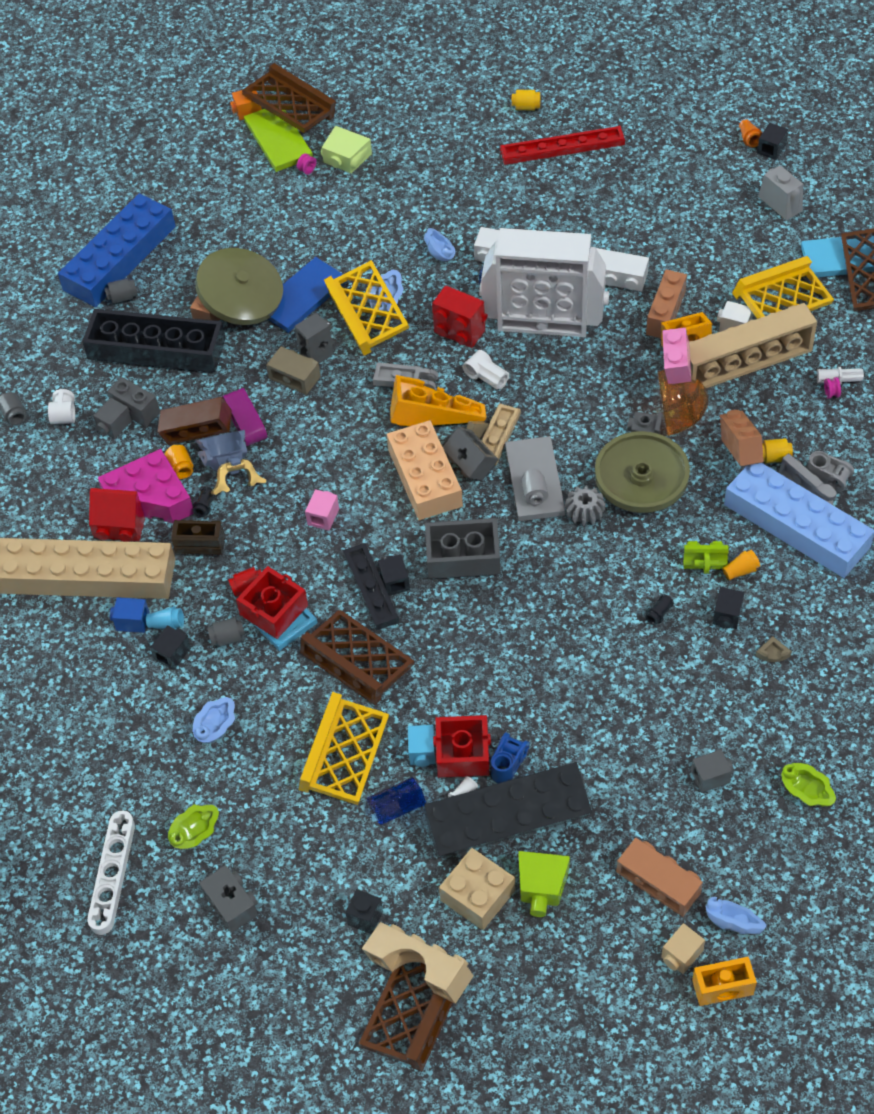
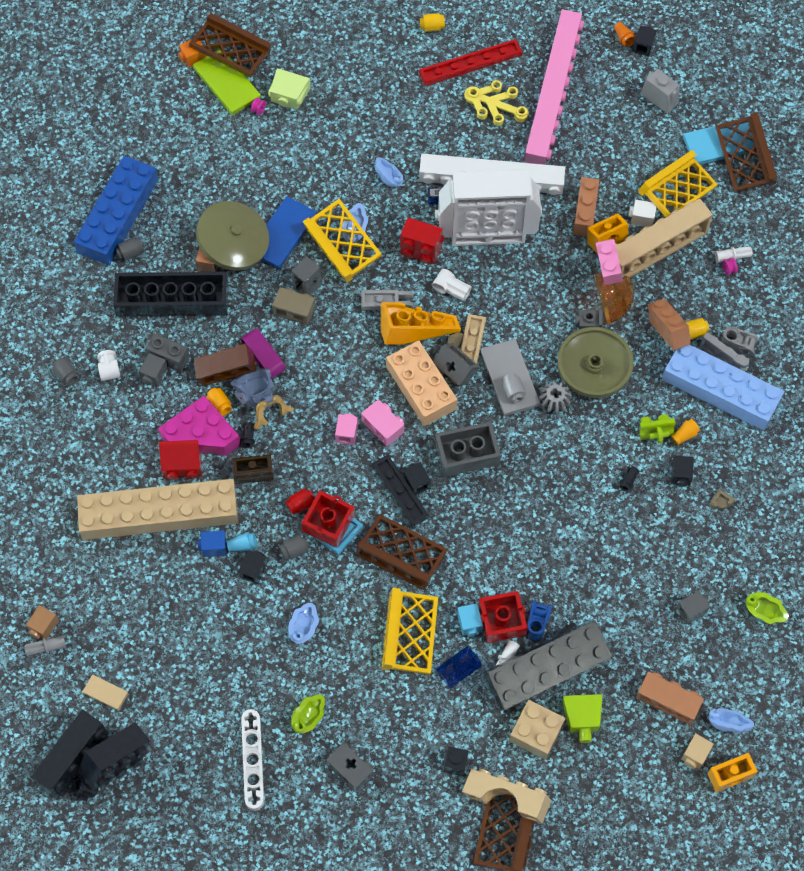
camera: 15 degrees left, 10 degrees up
(367, 507) = (383, 422): none -> bright pink brick
(559, 177) = (495, 102): none -> light yellow plant
(654, 177) = (553, 88): none -> bright pink brick

